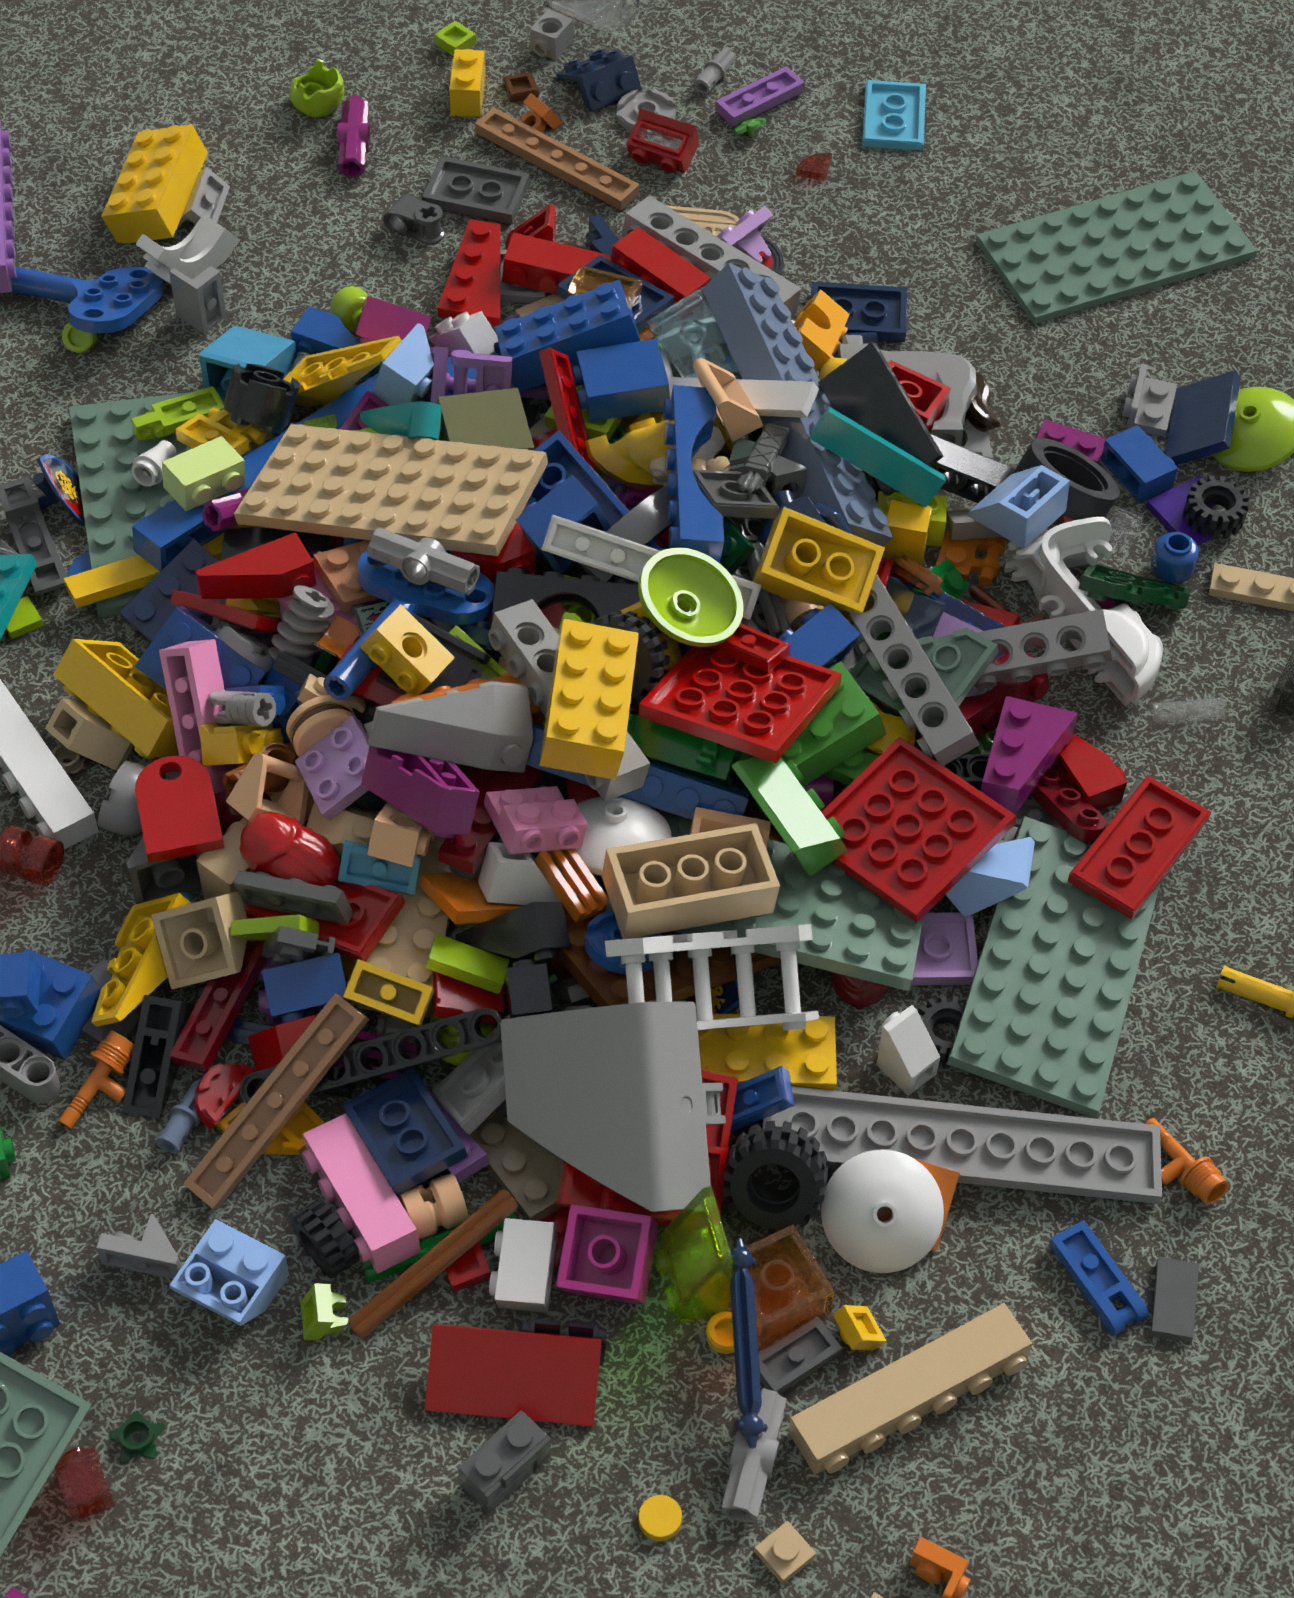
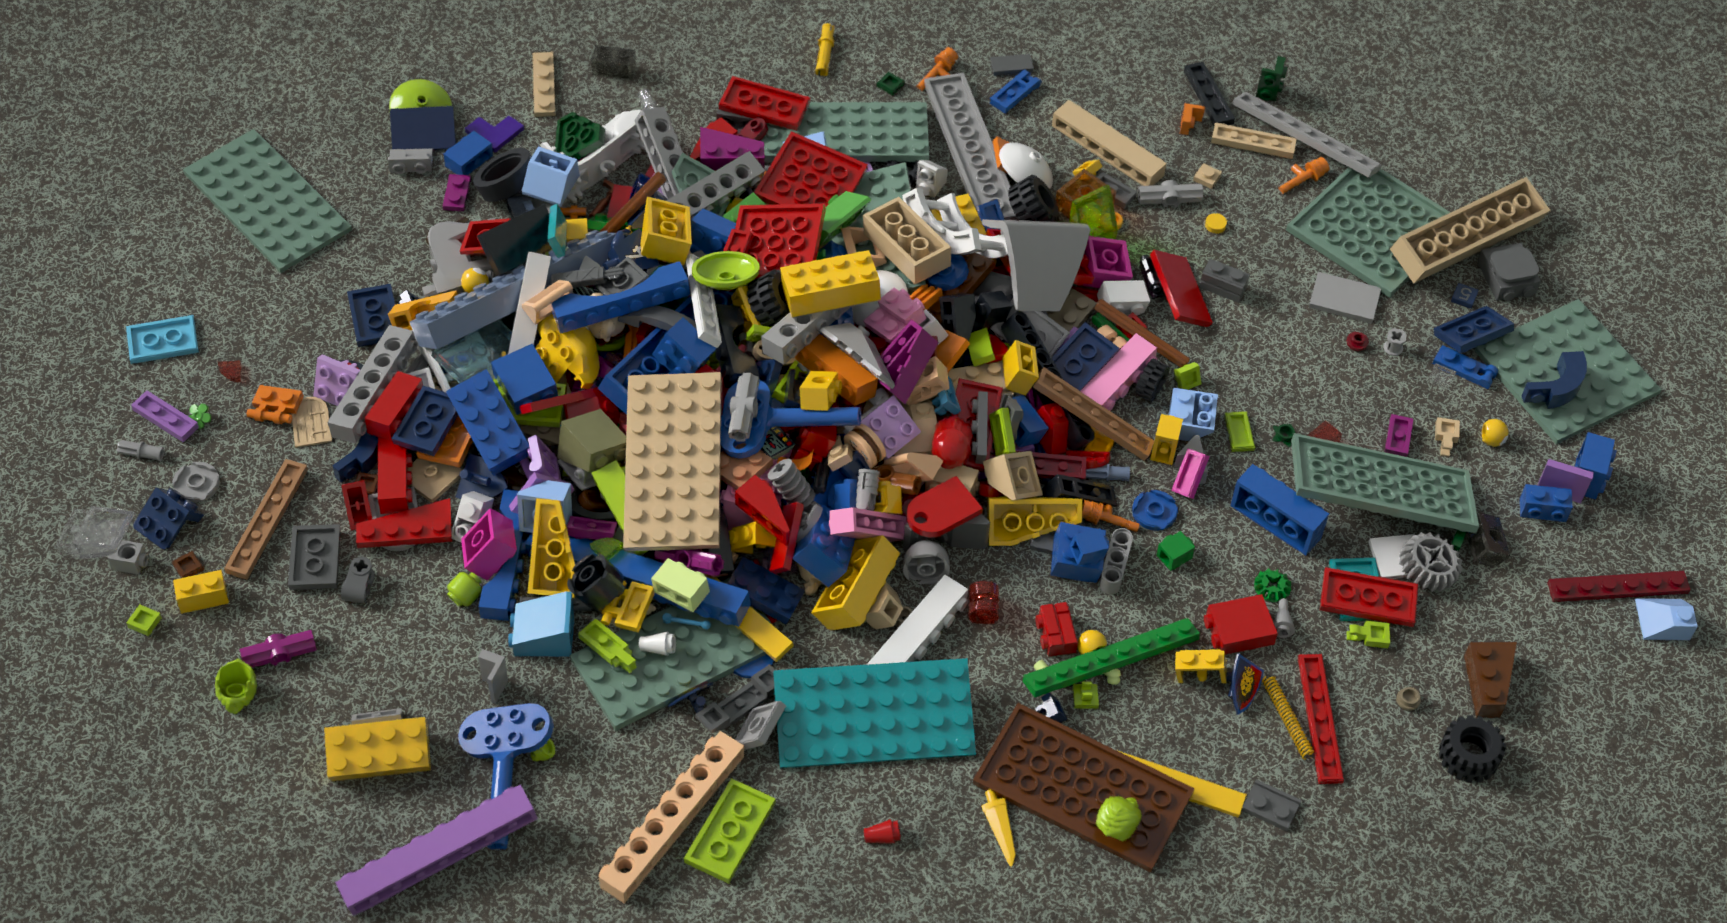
camera: 110 degrees left, 0 degrees up
(91, 1172) = (1148, 510): none -> blue tile
(108, 1221) = (1190, 473): none -> dark pink tile
(175, 1359) = (1239, 431): none -> lime tile
(186, 1204) = (1166, 439): none -> yellow brick
(204, 247) = (441, 704): white arch -> none
(406, 420) = (610, 471): teal piece -> none
(540, 113) = (221, 539): orange tile -> none
(590, 278) = (430, 420): clear orange tile -> none
(662, 141) = (238, 455): red window -> none
(746, 193) = (275, 399): none -> orange plate
(746, 1345) = (1141, 191): dark blue wheel -> none
(1170, 1079) = (890, 83): none -> dark green tile
(1174, 557) = (542, 125): blue head -> none
(1214, 521) = (494, 103): black tyre -> none

